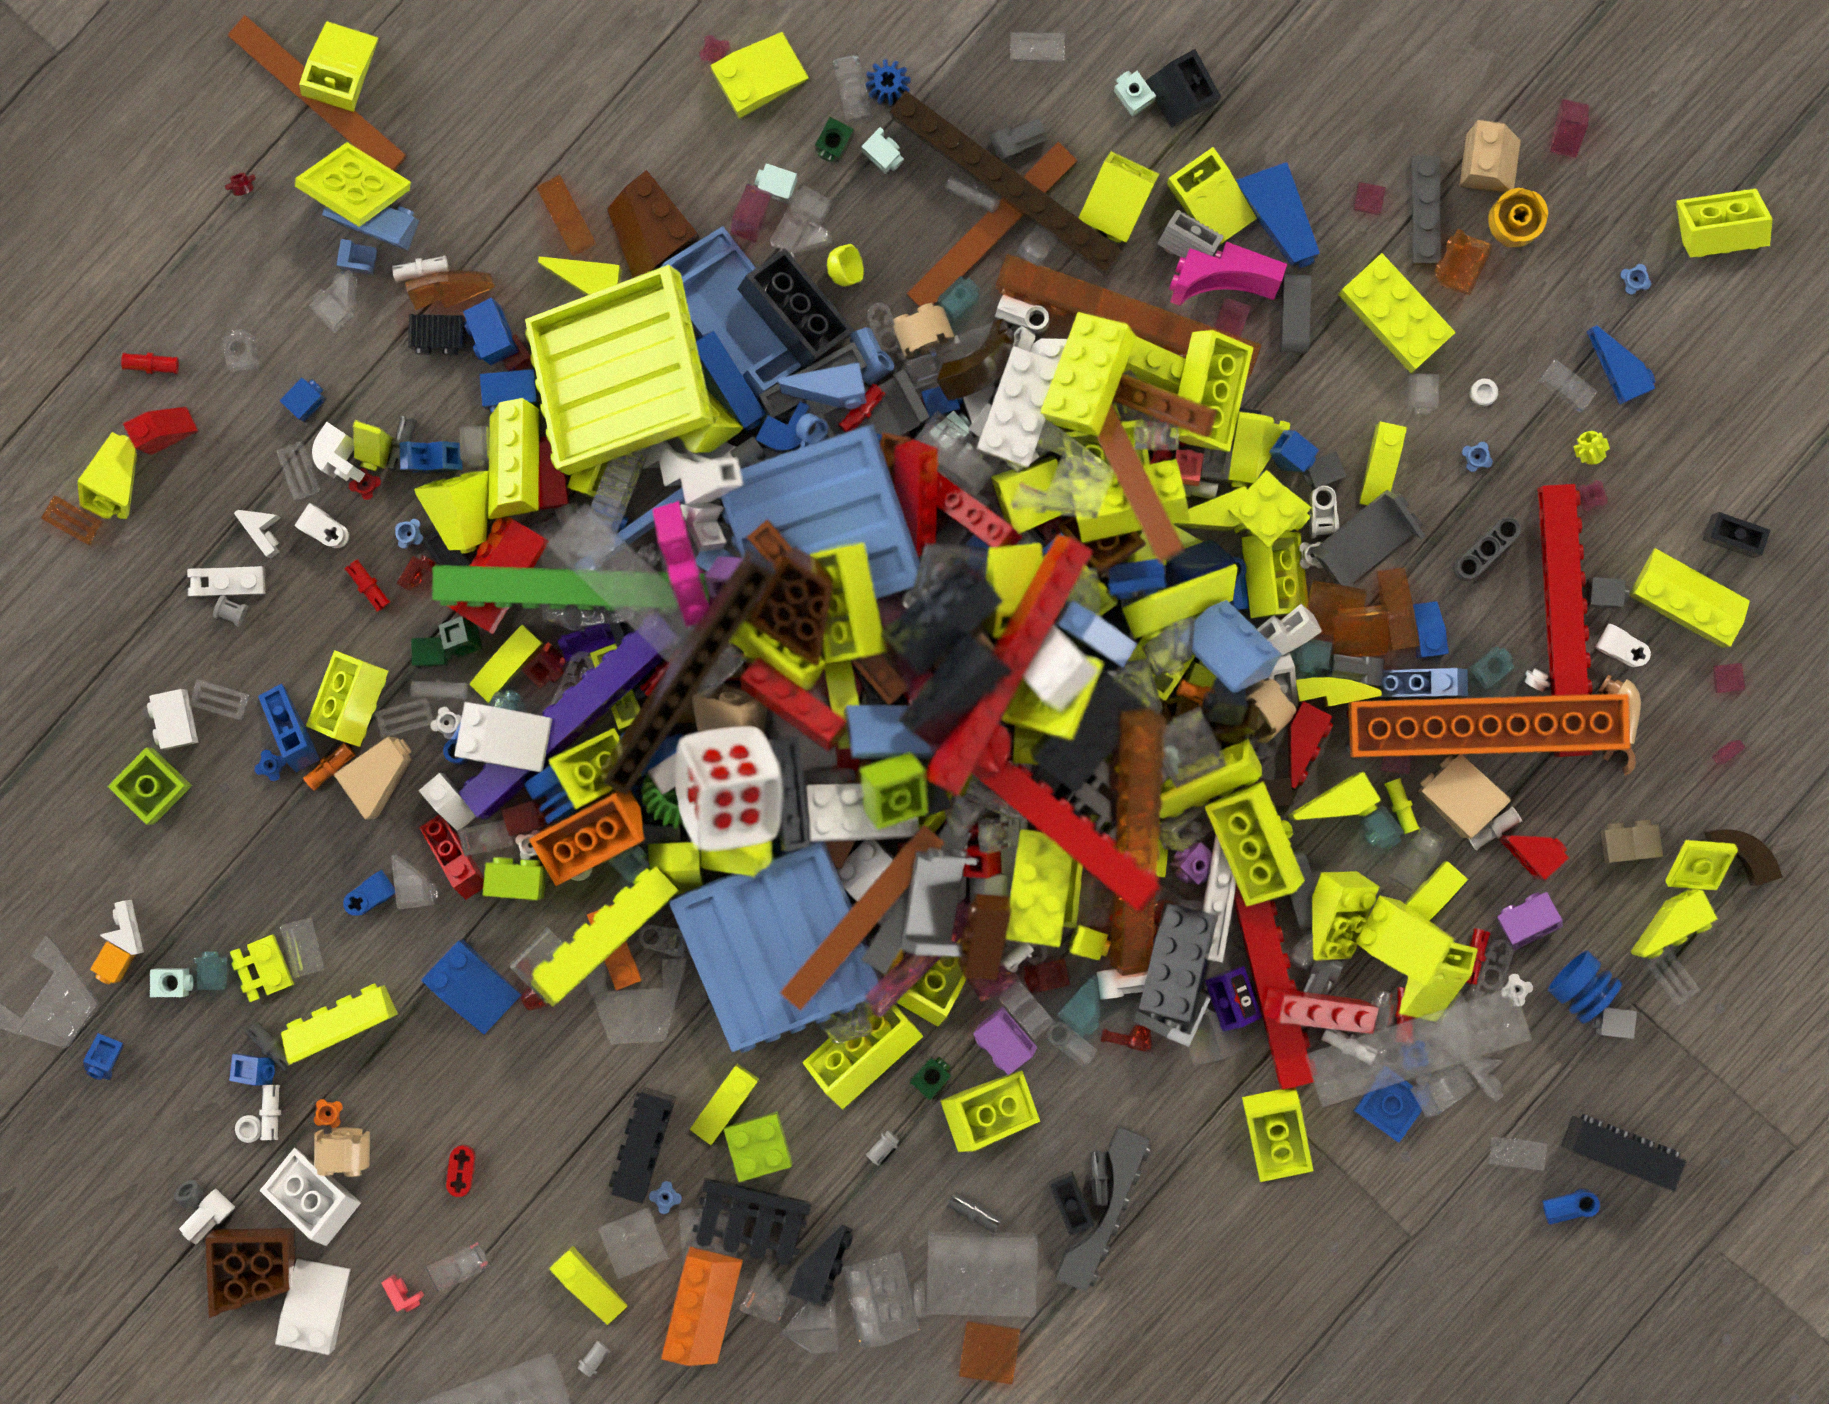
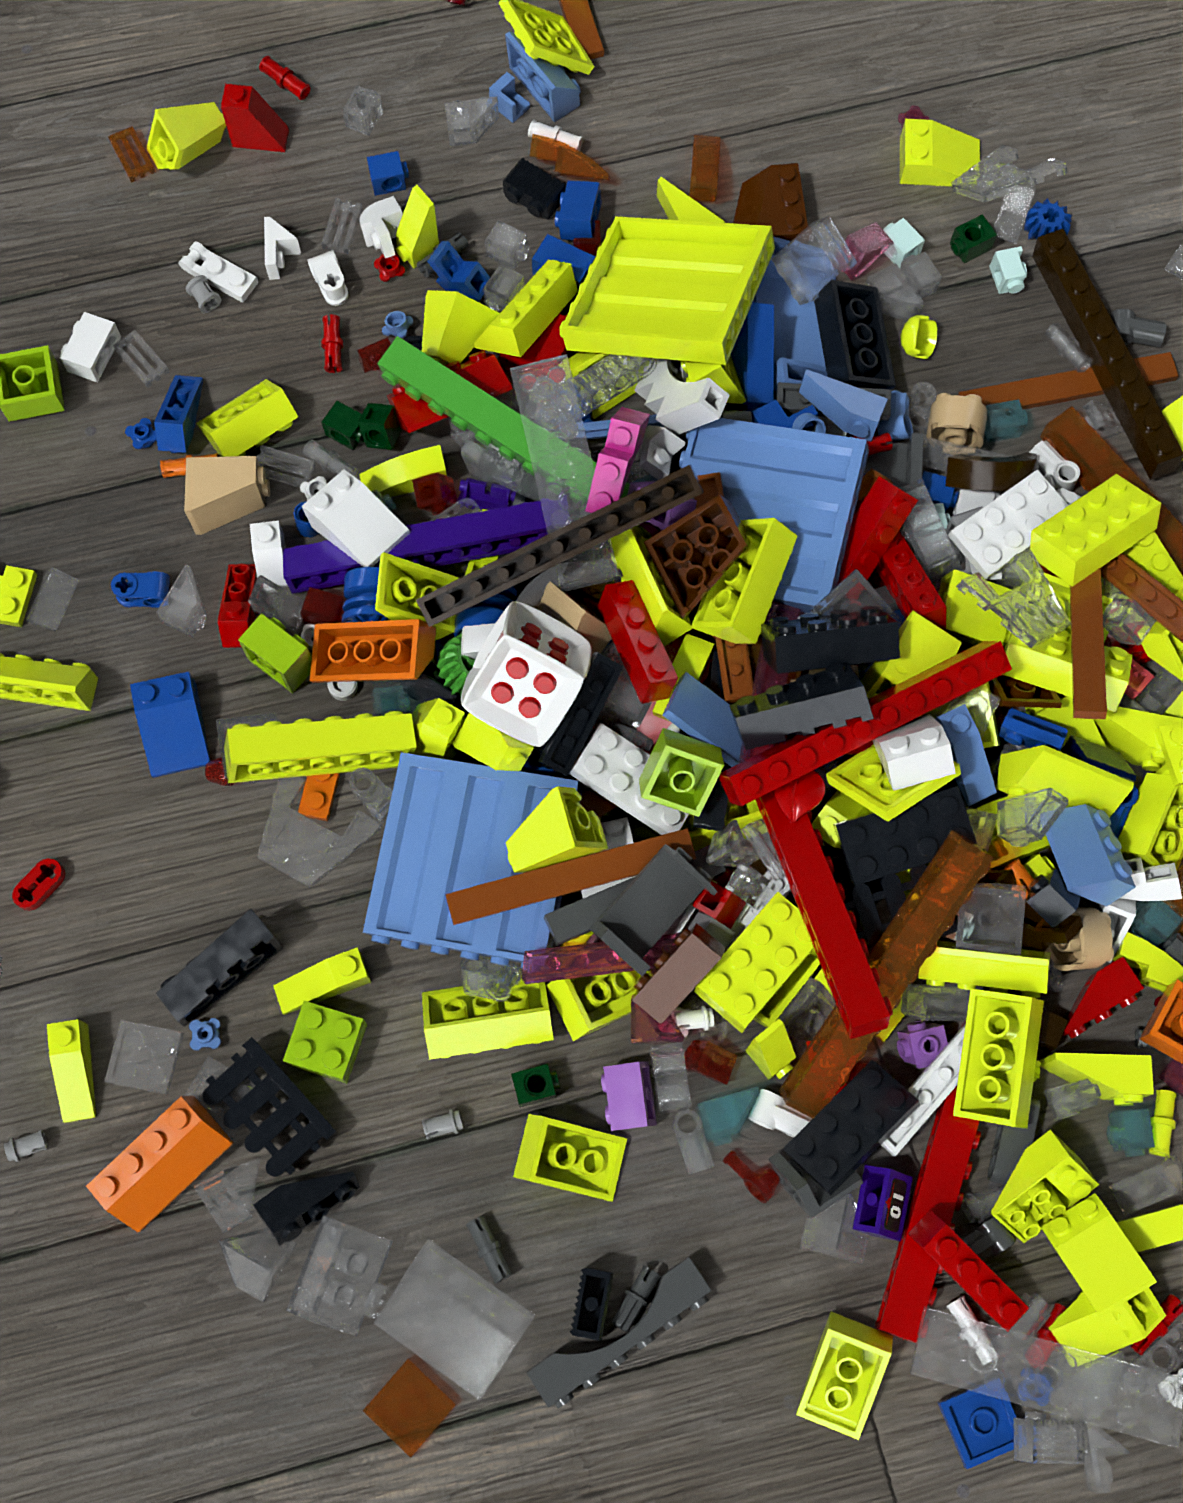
camera: 25 degrees right, 15 degrees down
(450, 401) = (506, 245): none -> clear brick
(715, 257) = (813, 260): none -> clear panel
(821, 83) = (997, 177): none -> clear wing
(831, 895) = (555, 833): none -> neon yellow slope
(1324, 835) = (1072, 1098): none -> clear piece

